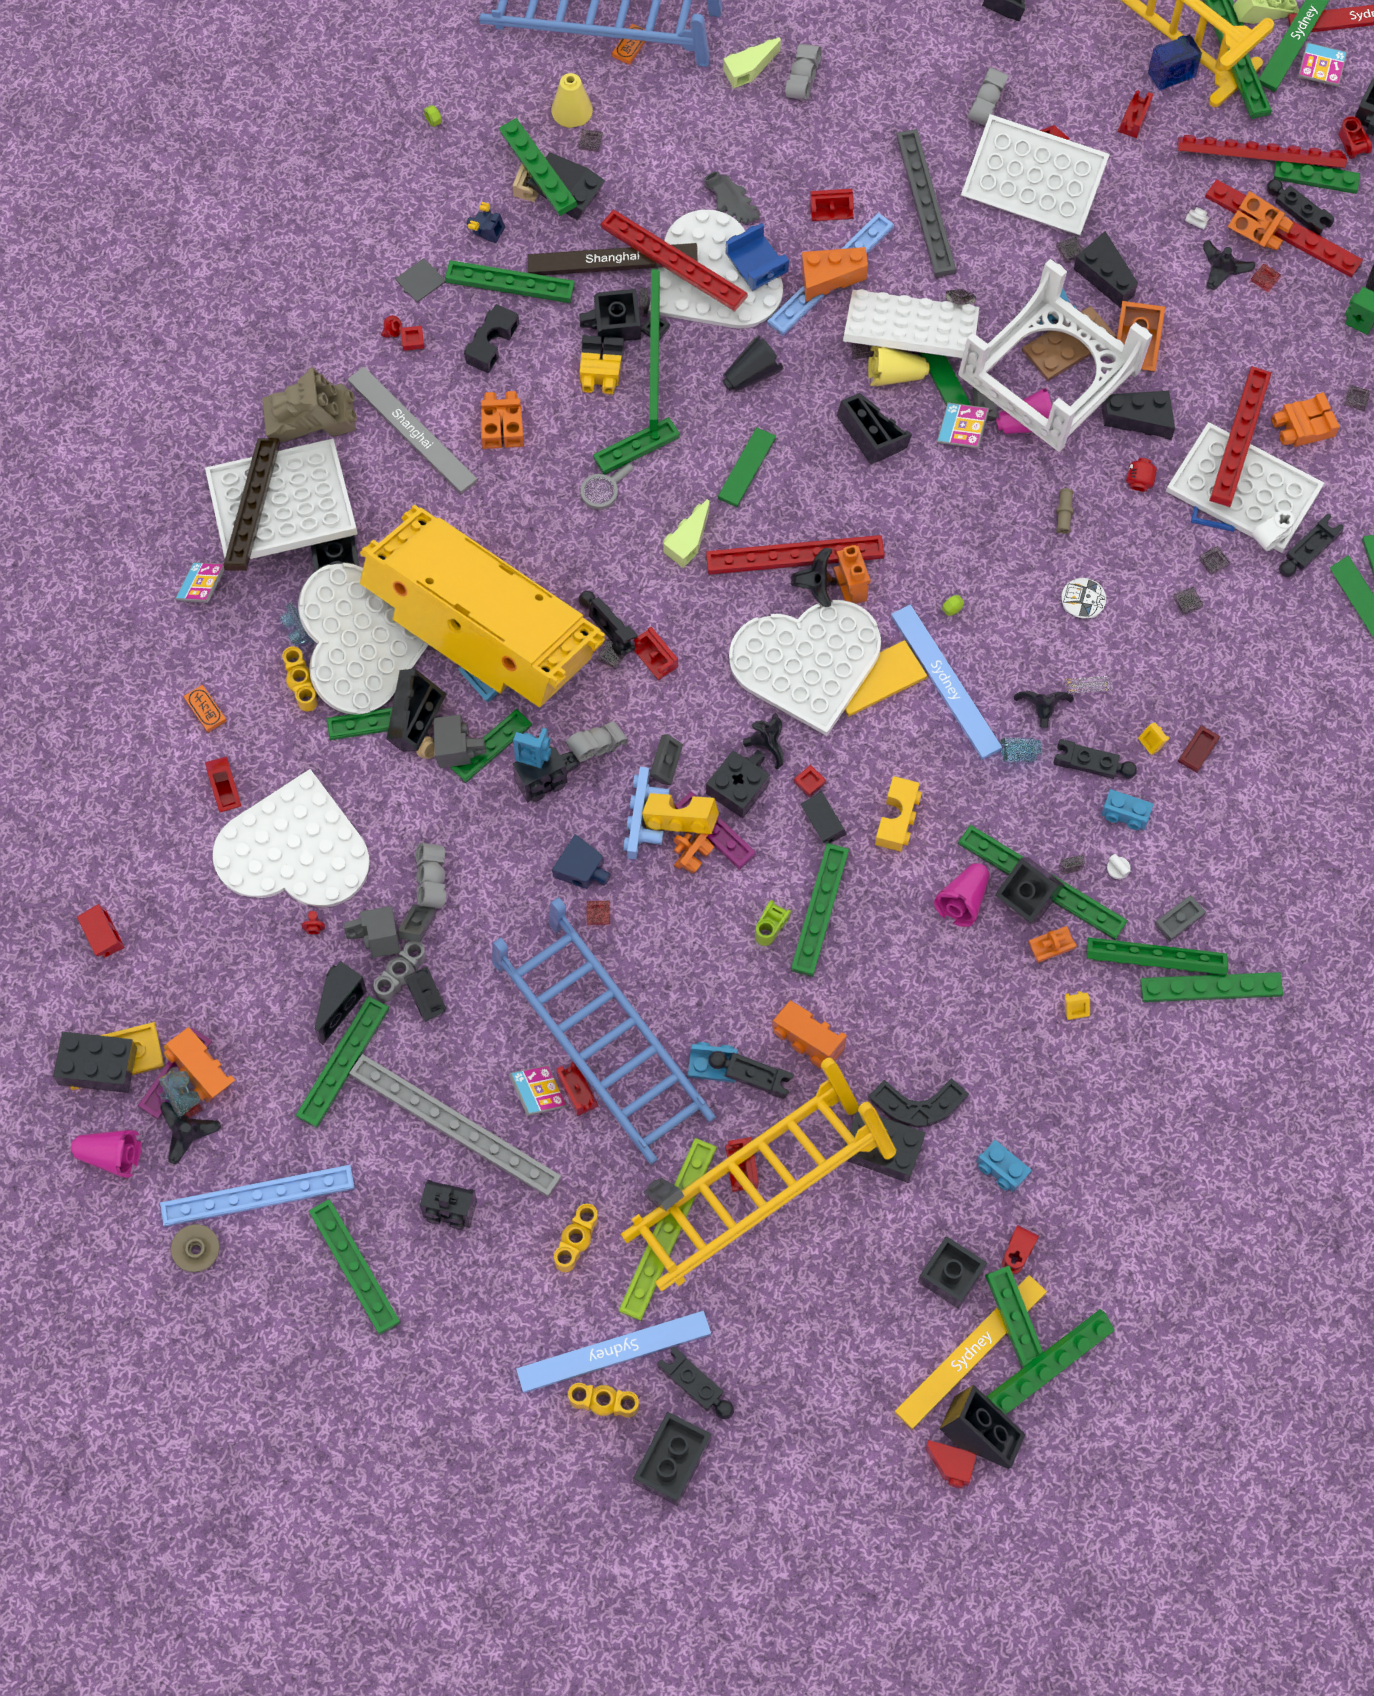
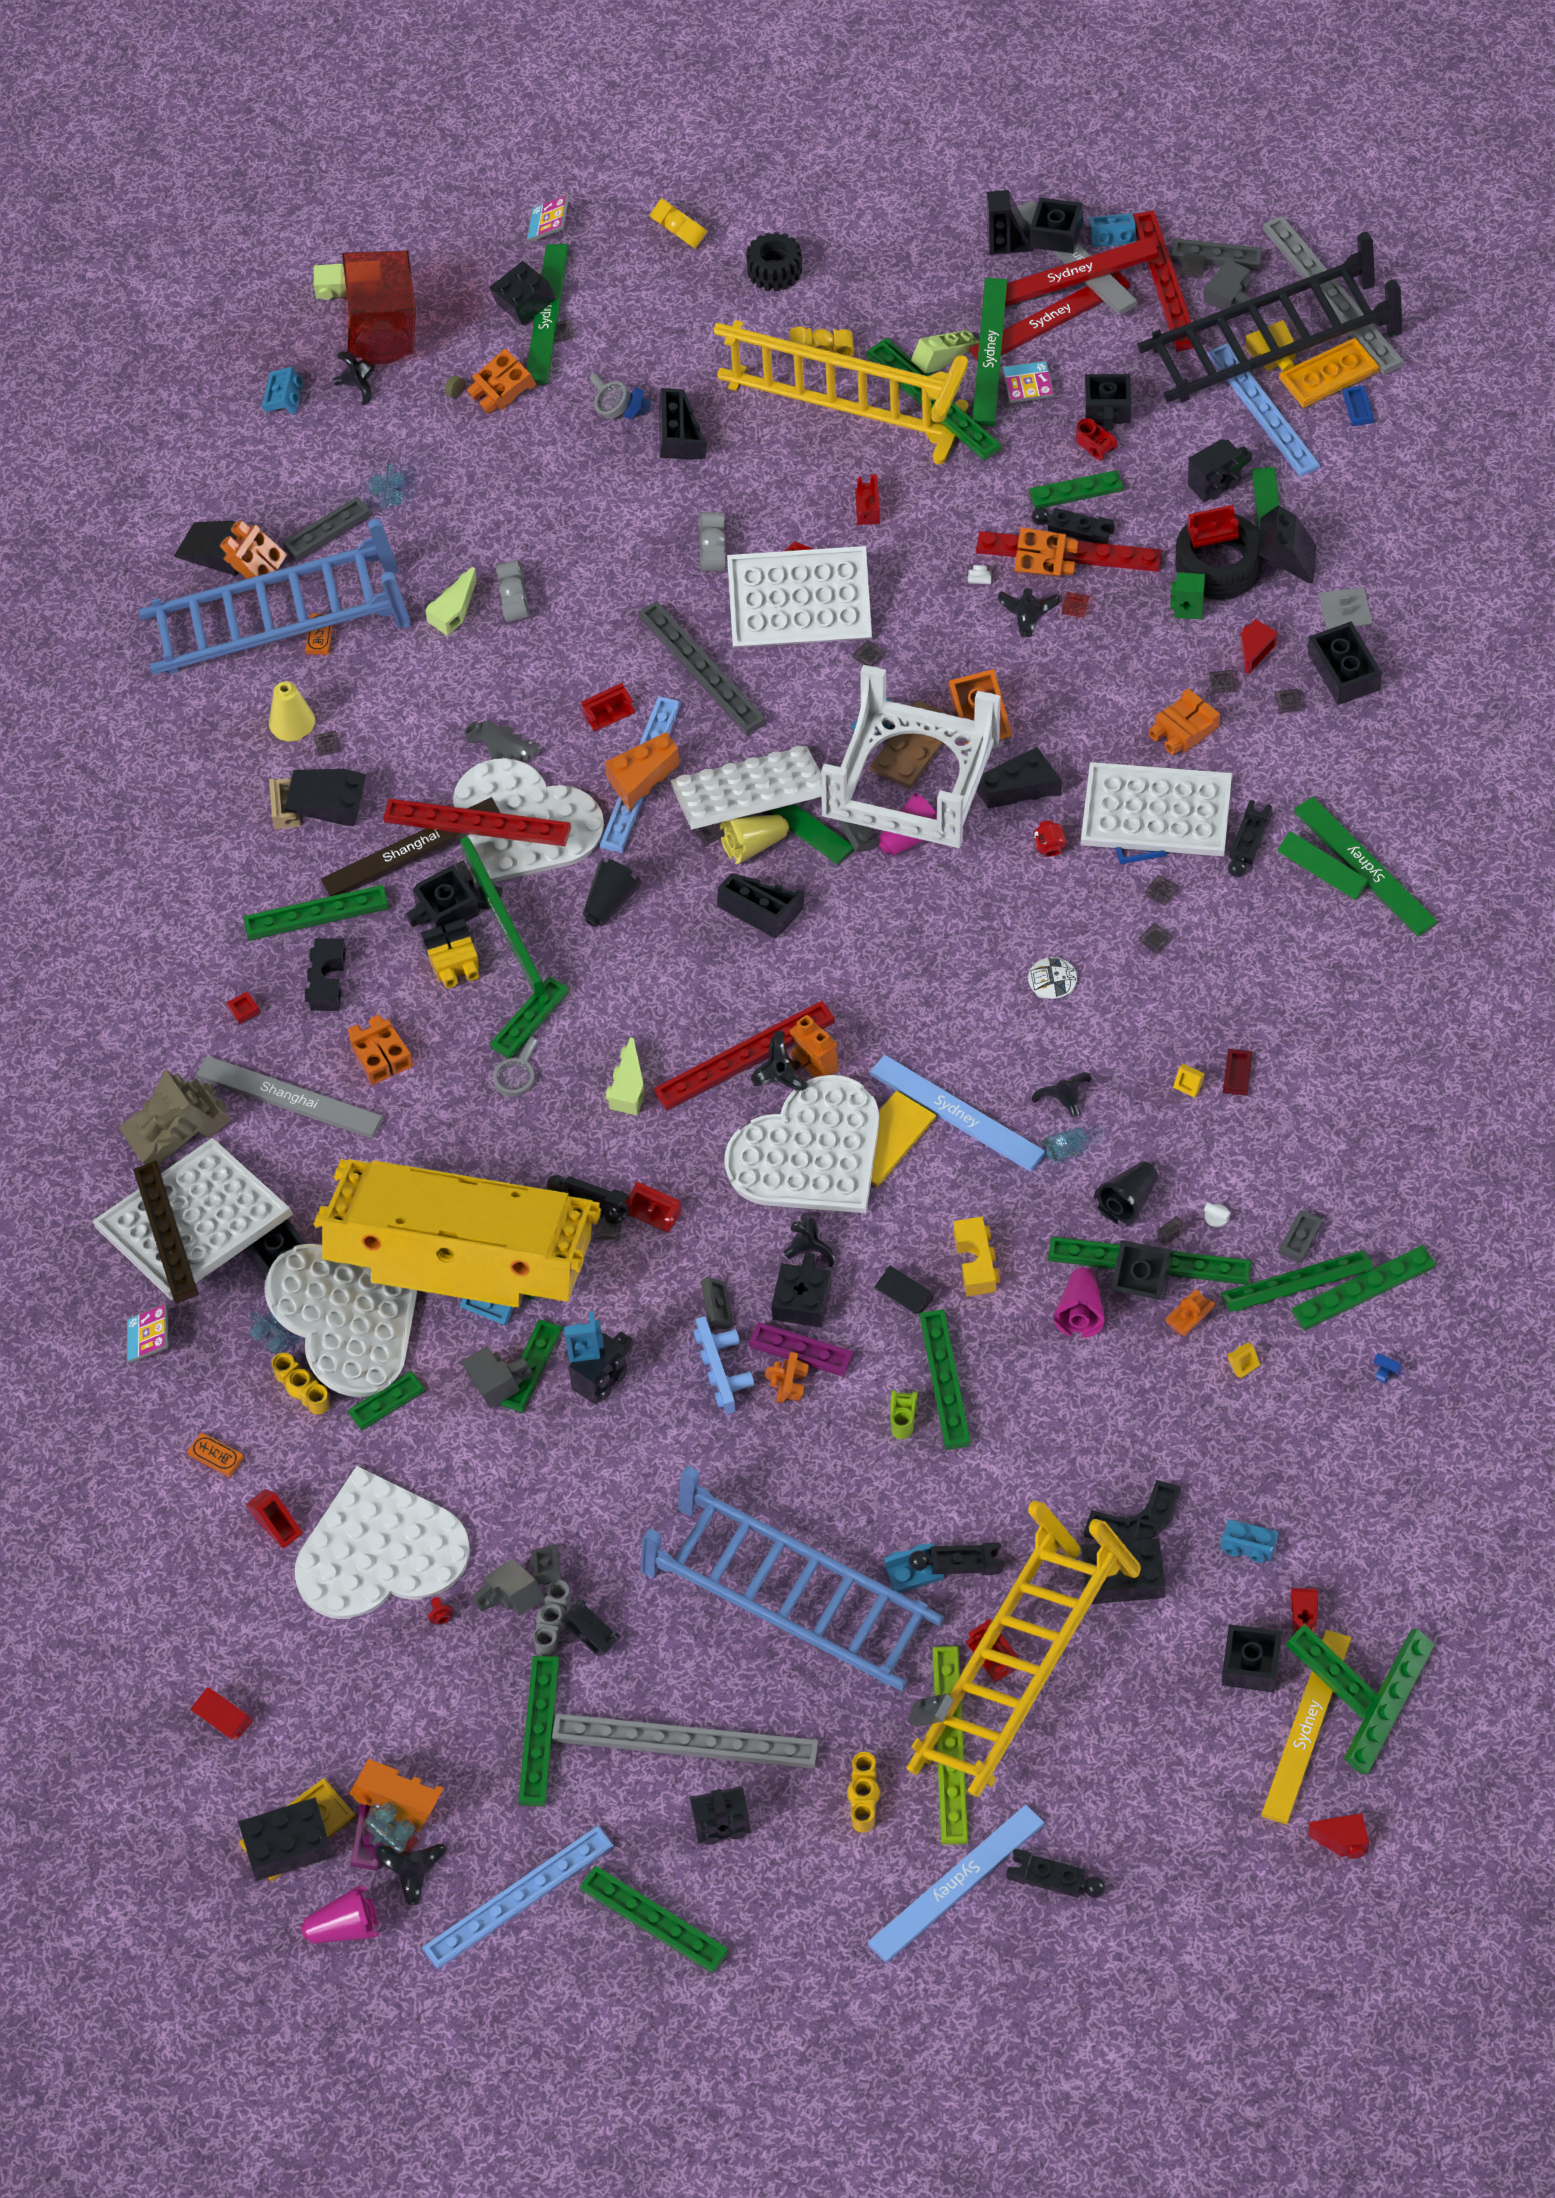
camera: 20 degrees left, 10 degrees down
(186, 1240) = (482, 1961): dark tan dish -> none
(340, 995) = (506, 1660): black slope -> none
(392, 327) = (215, 1006): red plate -> none
(413, 709) = (435, 1362): black wedge -> none
(420, 280) = (220, 949): dark grey piece -> none
(427, 748) = (465, 1394): tan plate -> none
(430, 875) = (536, 1513): light grey piece -> none
(432, 115) = (150, 783): lime tile -> none
(486, 224) = (262, 866): dark blue piece -> none
(537, 1090) = (752, 1670): piece -> none
(538, 167) = (290, 788): green plate -> none
(576, 1089) = (789, 1653): red hinge -> none
(580, 865) = (683, 1439): dark blue torso -> none
(593, 1394) = (960, 1938): yellow piece -> none
(596, 741) = (639, 1313): light grey piece -> none
(598, 912) = (723, 1478): clear red tile -> none
(672, 1458) = (1068, 1953): black brick -> none
(696, 817) = (778, 1342): yellow arch -> none
(746, 467) = (651, 992): green tile -> none
(755, 257) = (558, 787): blue panel -> none
(808, 1034) = (995, 1500): orange wedge -> none
(810, 781) = (871, 1262): red plate -> none
(953, 605) = (927, 1037): lime tile -> none
(960, 296) = (783, 743): clear smoke tile -> none
(963, 425) = (849, 863): piece -> none
(982, 1428) = (1354, 1788): black slope -> none
(1052, 815) = (1126, 1193): none -> black cone
(1065, 511) = (991, 903): dark tan pin -> none
(1088, 684) = (1099, 1056): clear tile -> none
(1092, 761) = (1140, 1126): black plate -> none
(1106, 270) = (916, 659): black wedge -> none
(1127, 809) = (1197, 1157): dark azure bracket -> none
(1174, 62) = (882, 435): clear blue container -> none
(1194, 1068) = (1386, 1367): none -> blue tile
(1240, 436) = (1128, 762): red tile -> none
(1254, 150) = (1003, 489): red plate -> none
(1274, 530) = (1207, 835): white piece -> none

